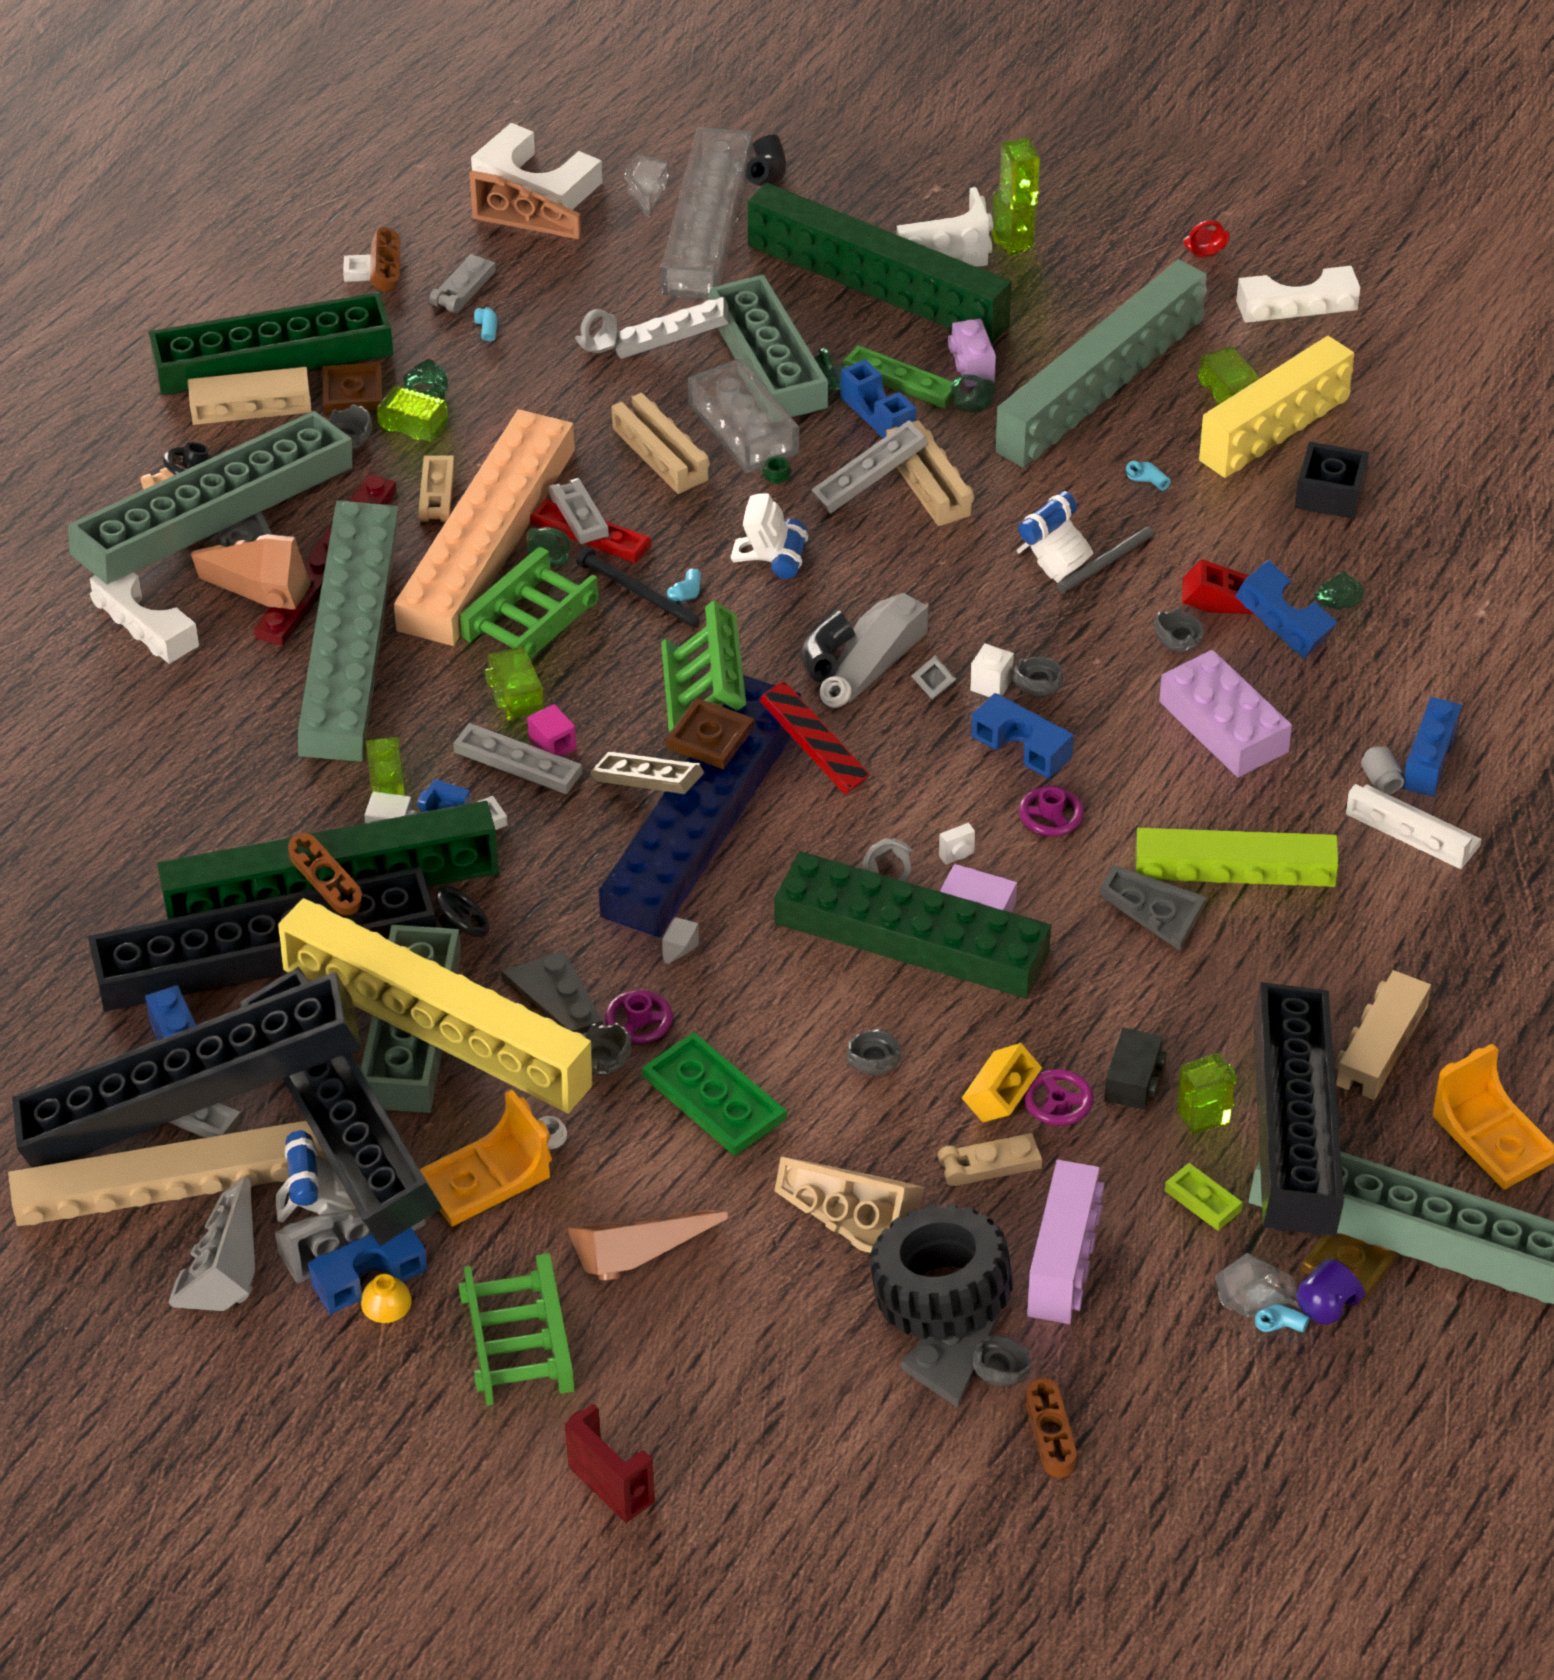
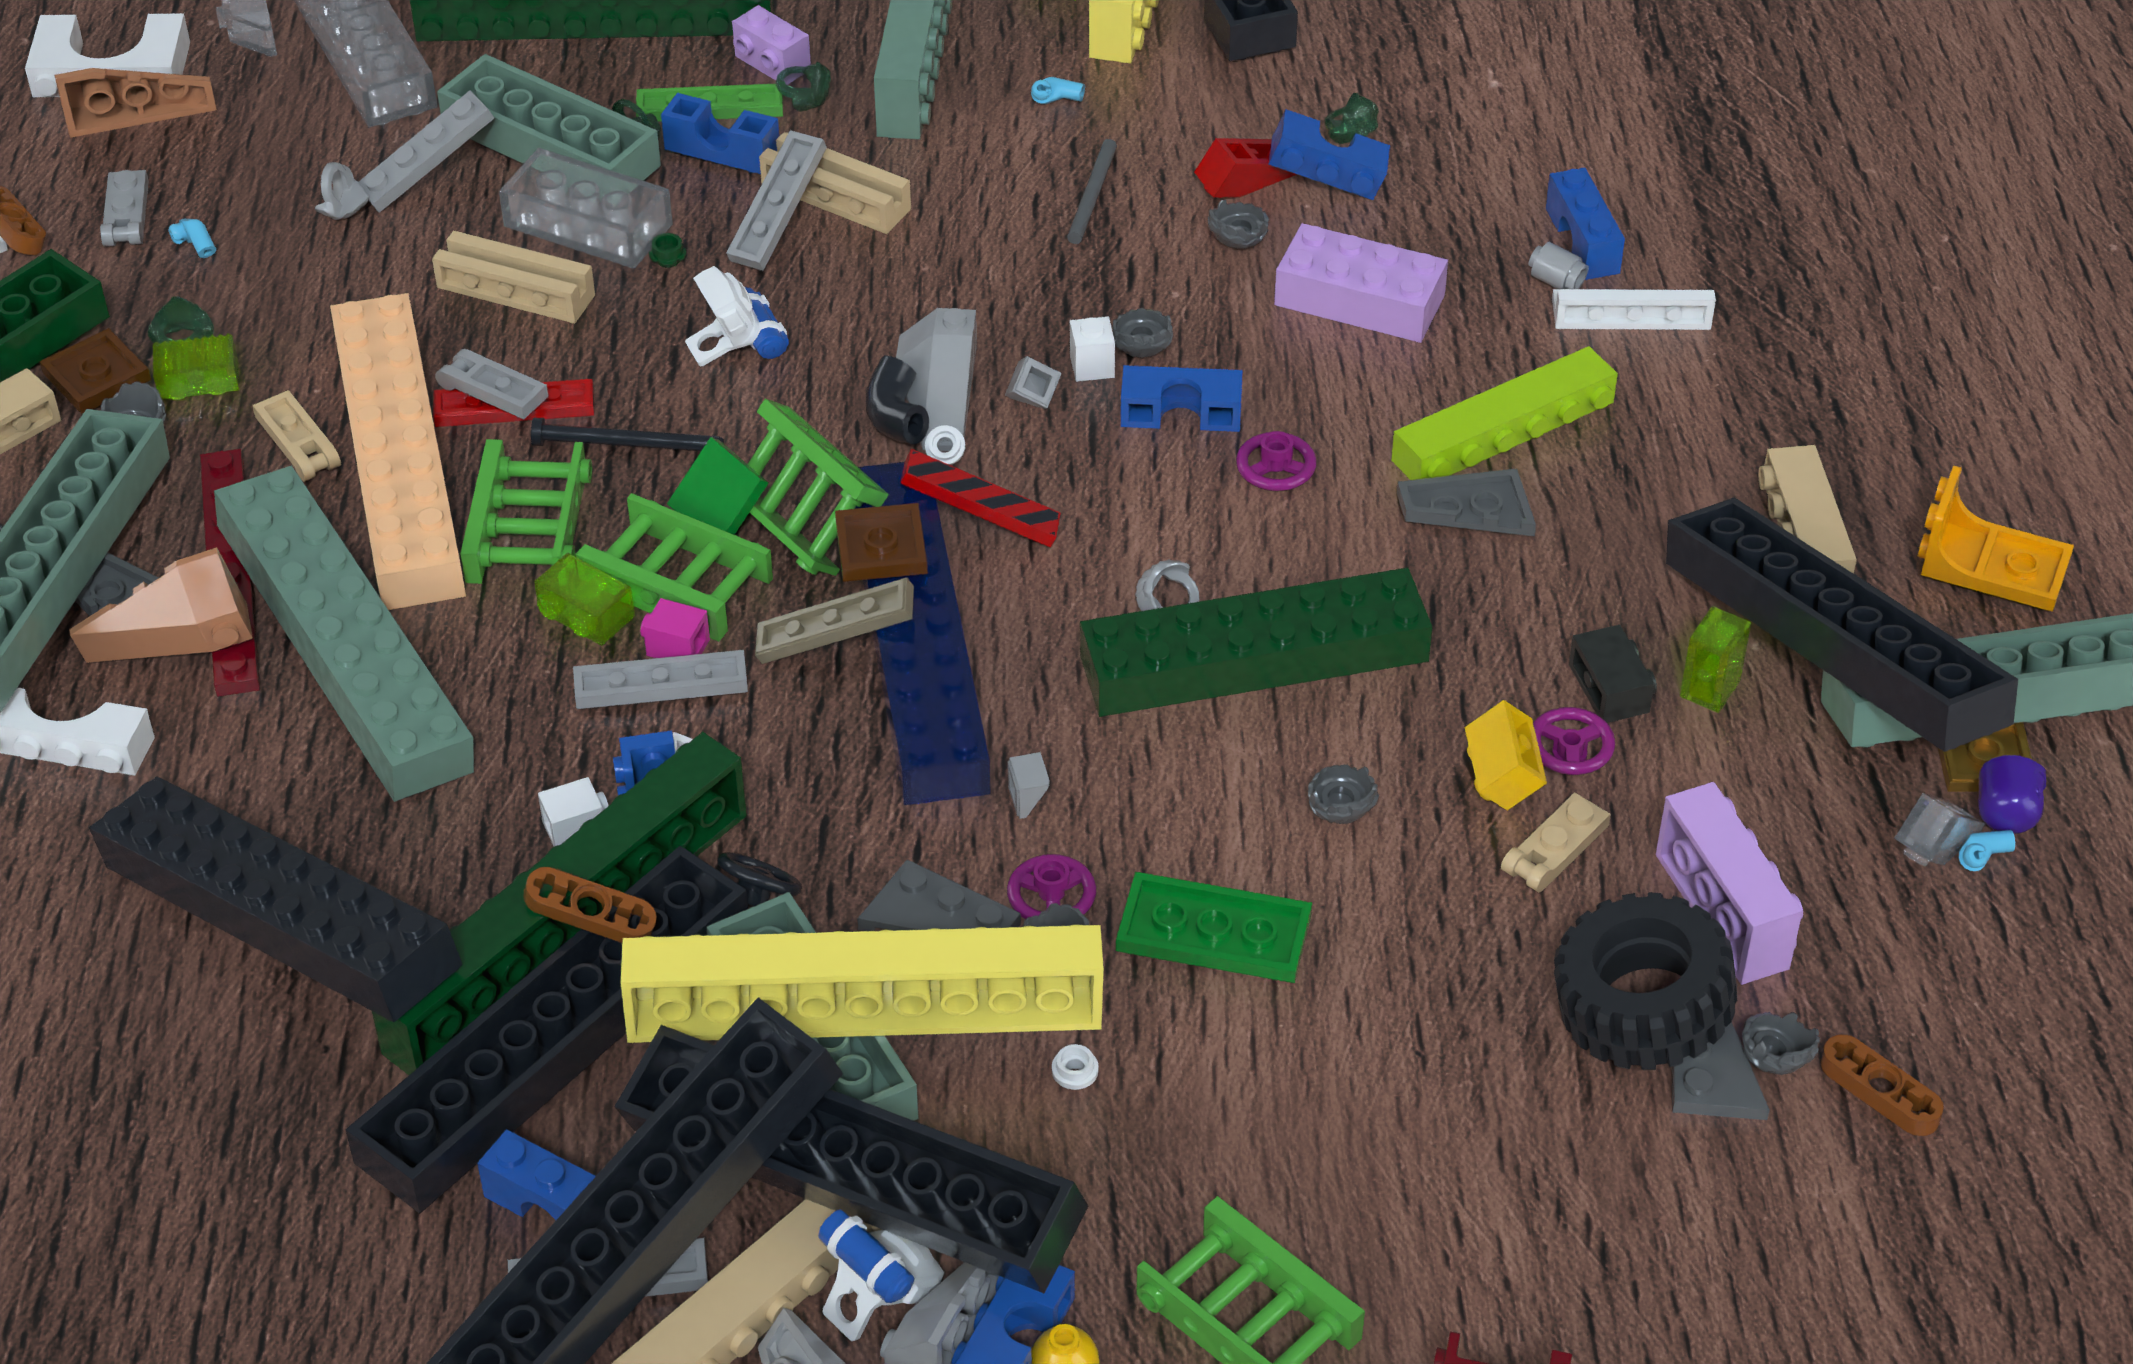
camera: 35 degrees left, 0 degrees up
(160, 776) = (277, 898): none -> black brick
(385, 766) = (523, 764): clear neon green brick -> none
(493, 1167) = (1063, 1109): light orange bracket -> none
(546, 539) = (474, 433): clear green piece -> none
(557, 688) = (692, 535): none -> bright green fence
(619, 1247) = (1288, 1130): nougat wedge -> none
(653, 652) = (718, 488): none -> green tile
(687, 589) = (682, 414): medium azure arm -> none
(847, 1200) = (1477, 963): tan wedge -> none
(956, 843) = (1221, 538): white plate -> none
(981, 888) = (1296, 567): lavender brick -> none
(1054, 538) = (1038, 188): white piece -> none
(1203, 1196) = (1798, 766): lime plate -> none

